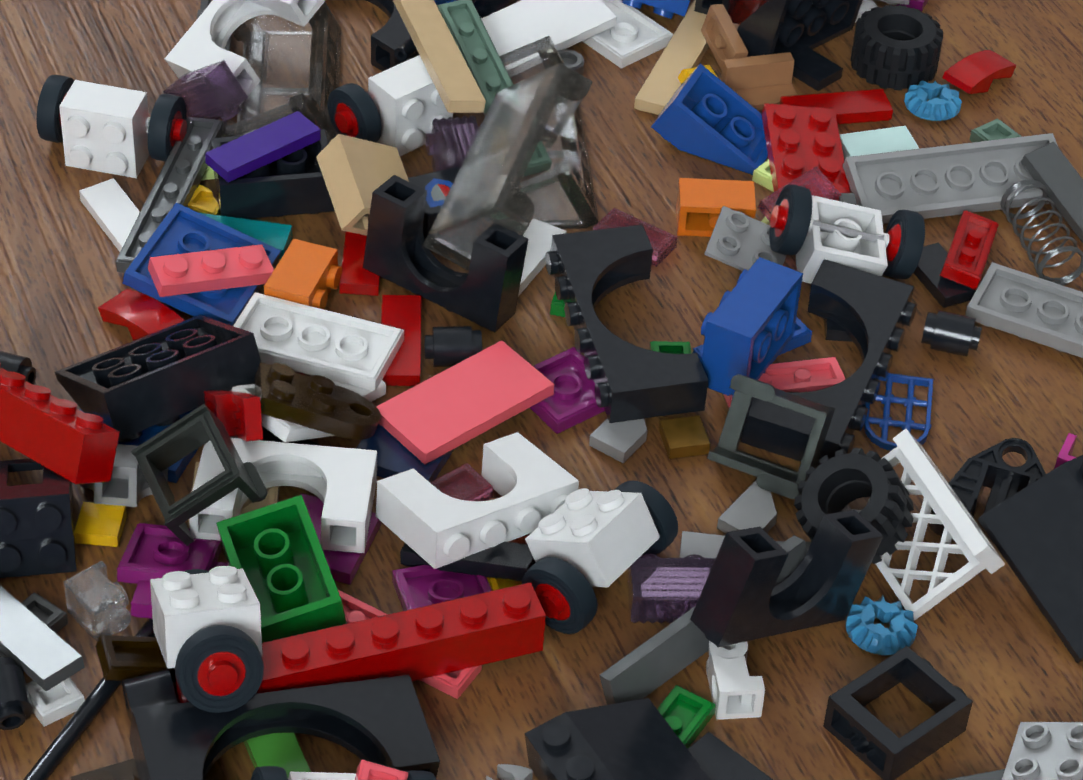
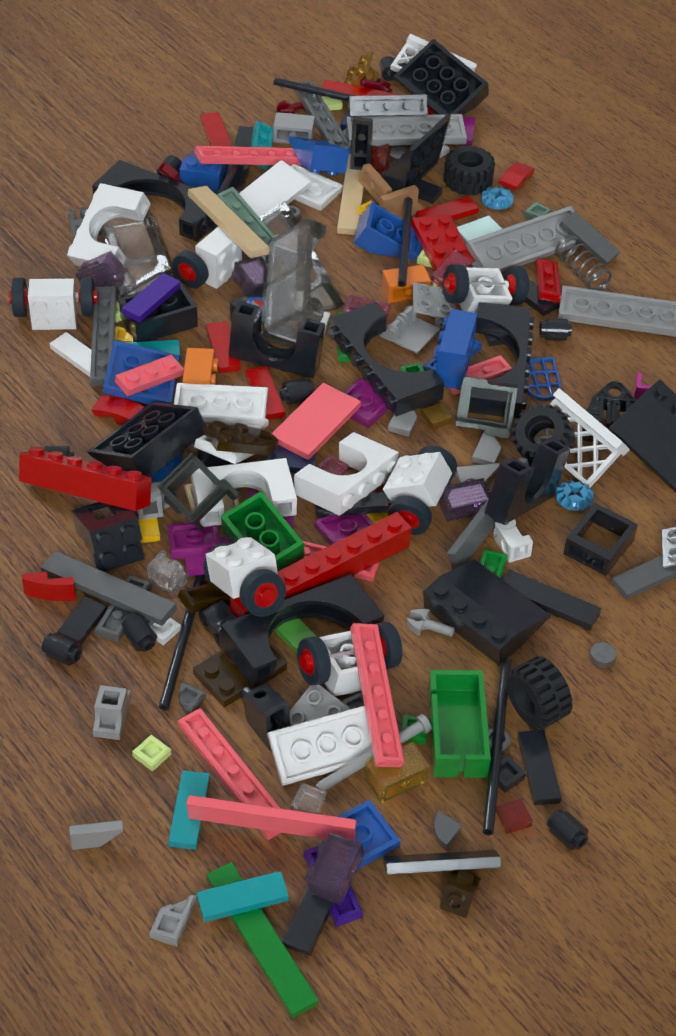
camera: 15 degrees left, 5 degrees up
(237, 412) = (207, 452): red slope -> none
(352, 173) = (213, 306): tan brick -> none
(688, 285) = (410, 331): none -> light grey hinge
(735, 141) = (405, 240): none -> black piece

